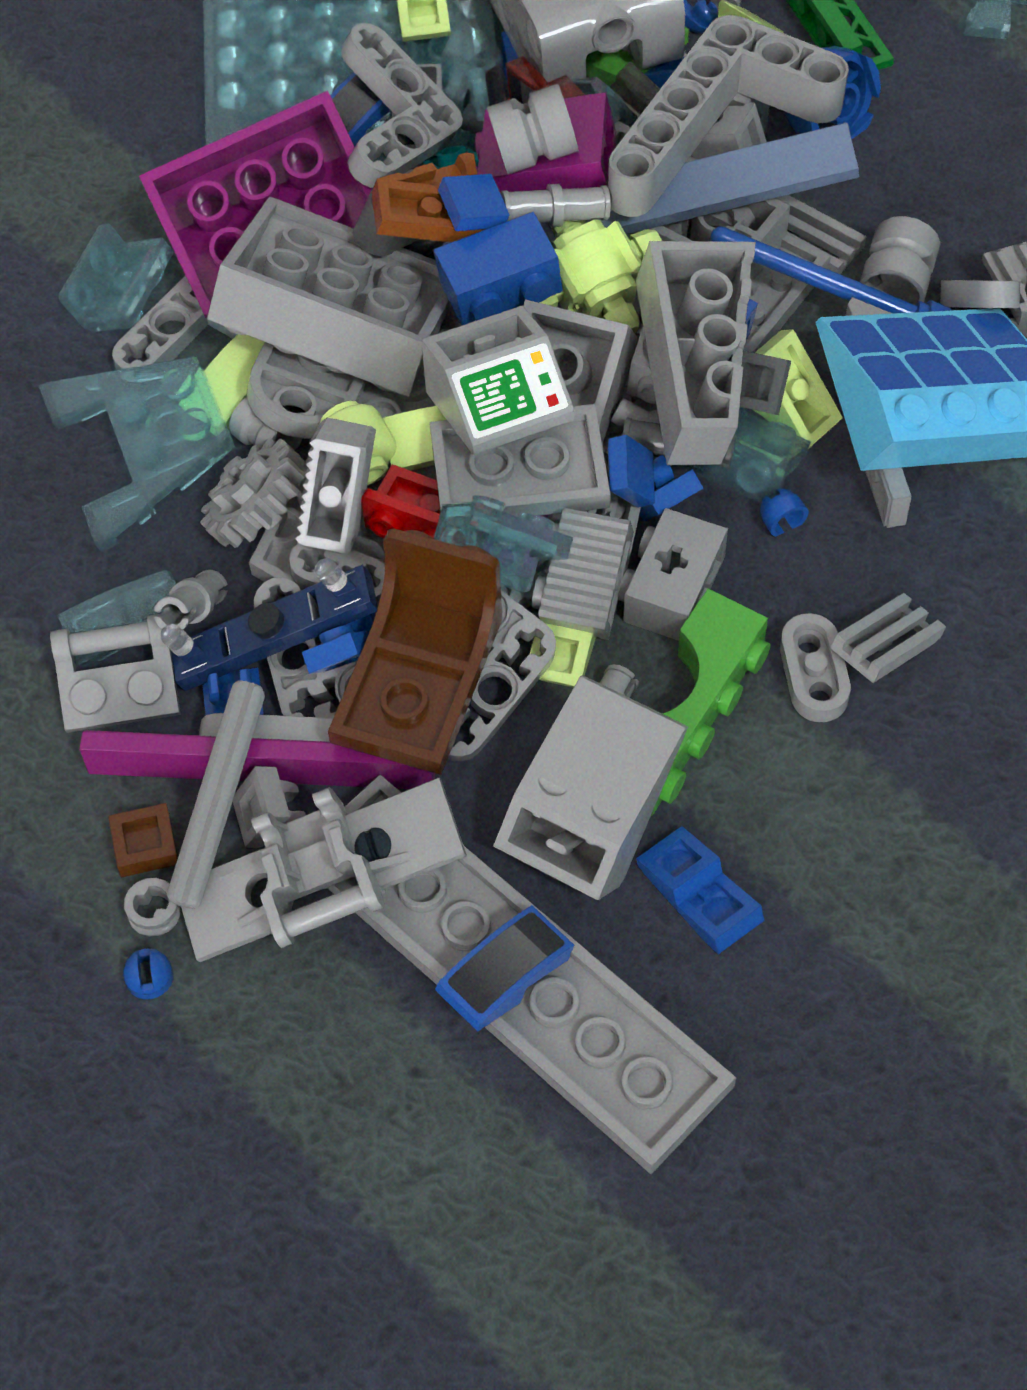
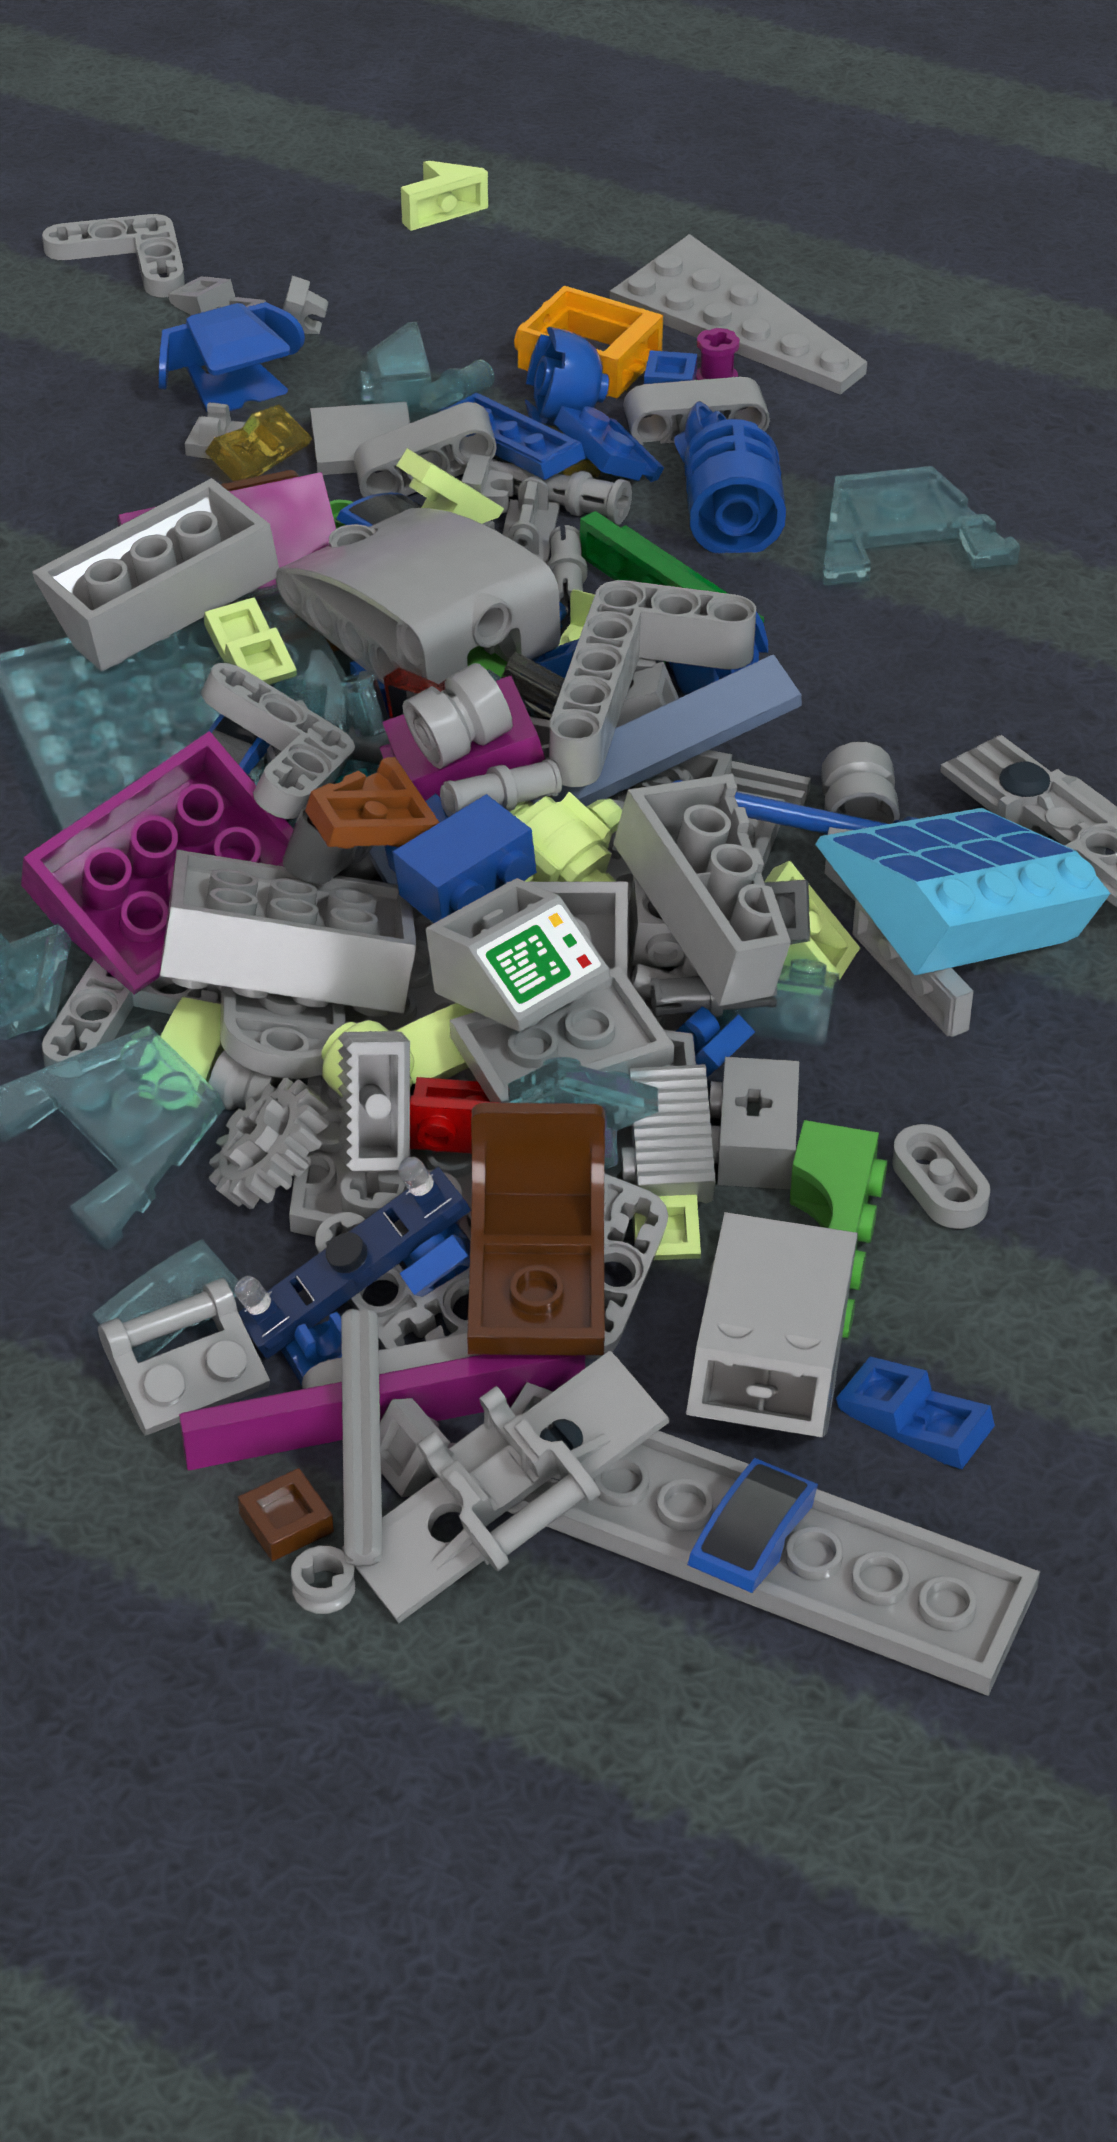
camera: 20 degrees left, 15 degrees down
(160, 972) = (333, 1651): blue hinge -> none
(191, 599) = (249, 1245): light grey pin -> none
(473, 202) = (419, 796): blue tile -> none
(631, 471) = (681, 1023): blue tile -> none
(785, 505) = (840, 1037): blue hinge -> none
(856, 633) = (988, 1116): light grey tile -> none
(980, 293) = (957, 796): light grey beam -> none

